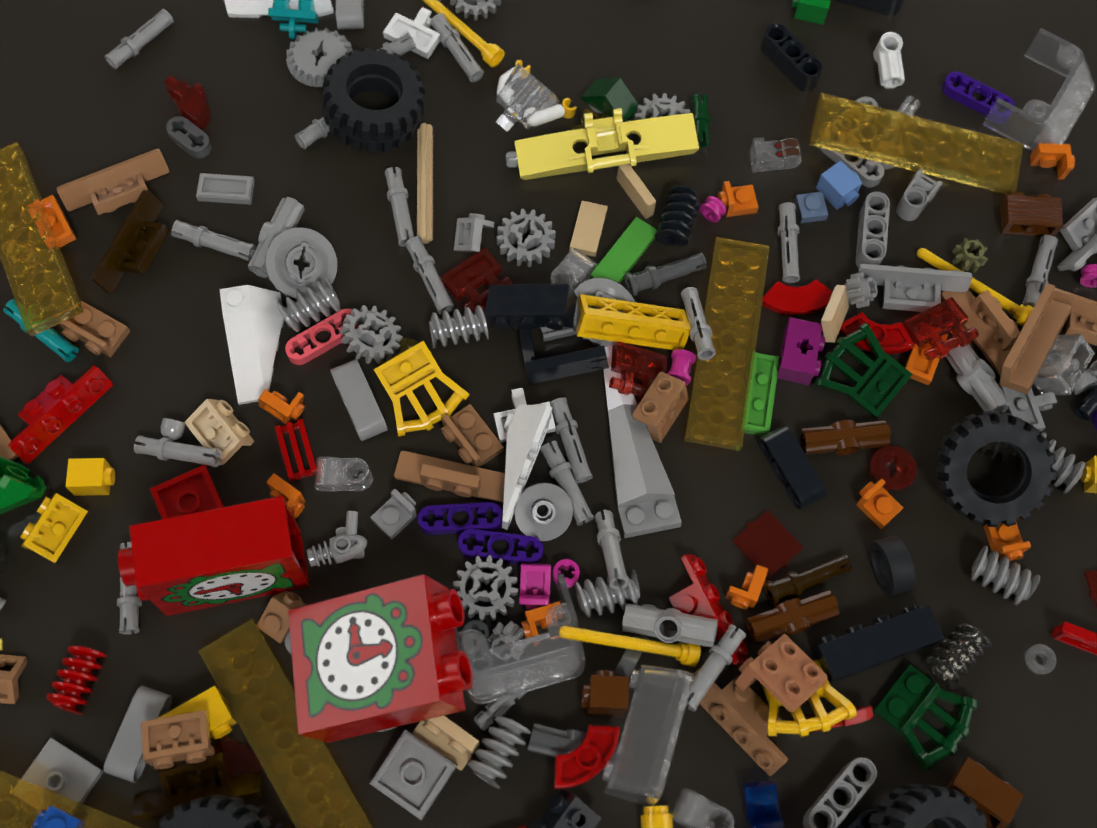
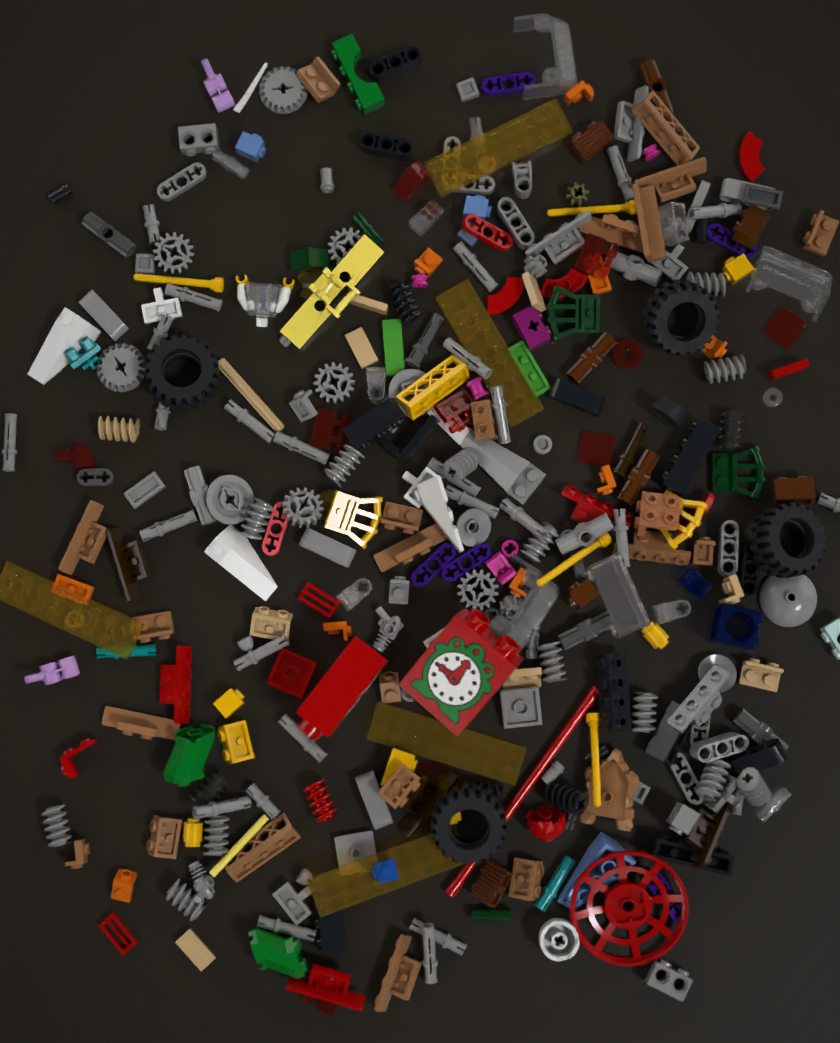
camera: 35 degrees left, 15 degrees up
(15, 622) = (263, 801): none -> light grey pin
(257, 107) = (118, 430): none -> tan piece
(277, 405) = (289, 586): orange bracket -> none
(588, 758) = (598, 631): red tile -> none
(589, 428) = (461, 465): none -> light grey piece
(690, 400) = (500, 414): none -> light grey pin
(694, 48) = (326, 180): none -> light grey pin
(706, 488) = (542, 444): none -> light grey tile
(795, 106) = (412, 179): none -> clear red brick
(804, 774) = (703, 551): none -> medium nougat bracket
(842, 219) = (477, 221): none -> red beam
(878, 503) = (635, 380): orange bracket -> none
(889, 60) = (444, 103): white piece -> none
(927, 71) = (467, 89): none -> light grey tile

